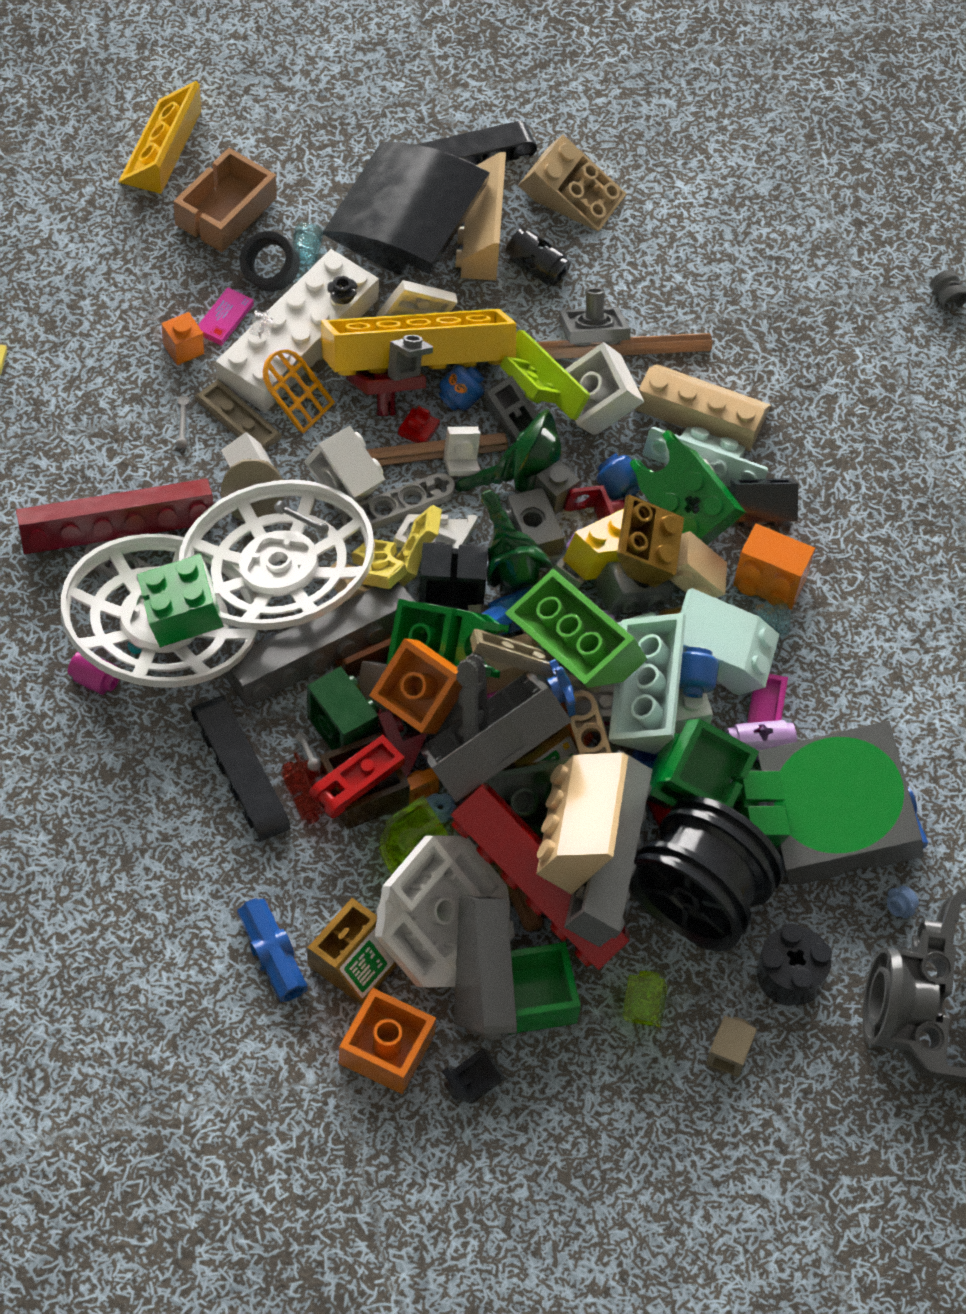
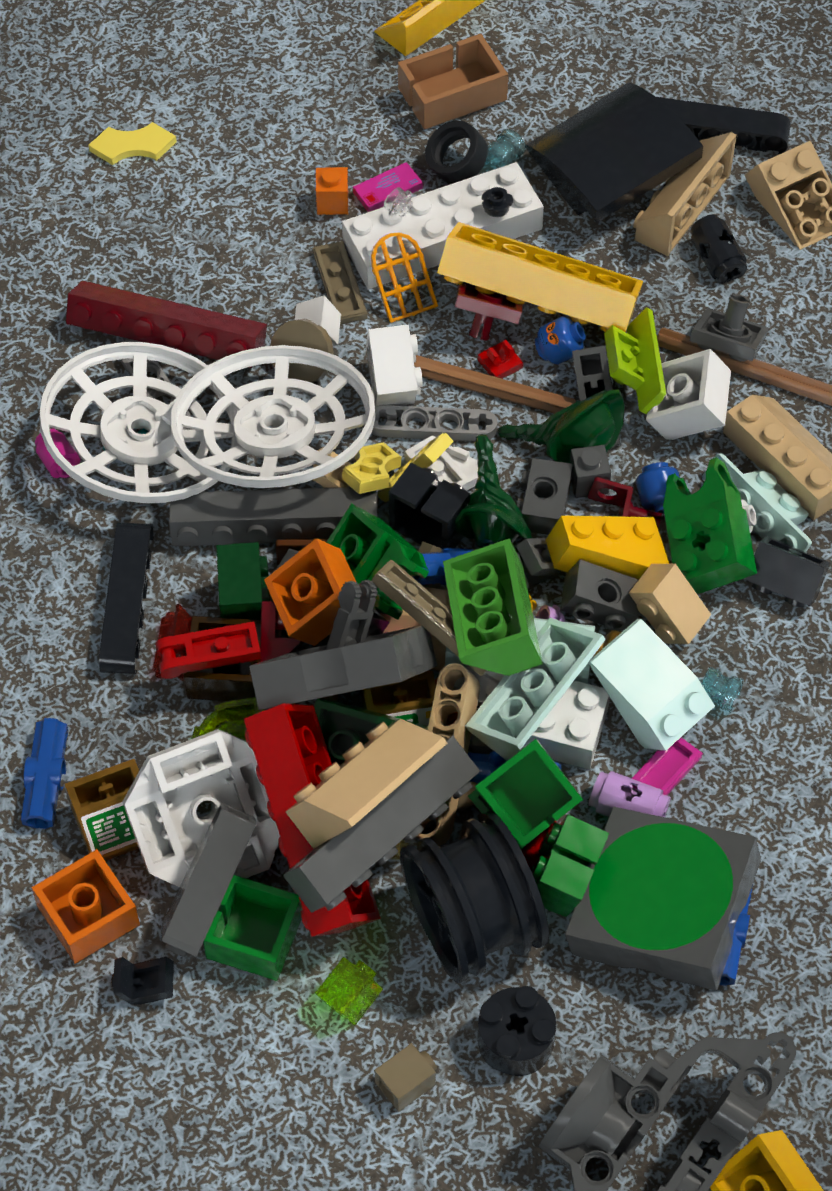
camera: 35 degrees right, 0 degrees up
(180, 600) = (150, 417): piece -> none
(183, 402) = (274, 284): light grey hinge -> none
(281, 508) = (323, 408): dark grey hinge -> none
(314, 763) = (202, 598): light grey hinge -> none
(406, 356) = (507, 285): dark grey bracket -> none
(417, 299) = (568, 240): wing -> none
(462, 451) = (520, 398): white bracket -> none
(561, 687) = (437, 652): blue animal -> none
(649, 542) = (622, 553): pearl gold slope -> none
(698, 672) = (592, 700): blue head -> none
(773, 566) = (750, 638): orange brick -> none
(902, 901) = (671, 1025): light blue plate -> none

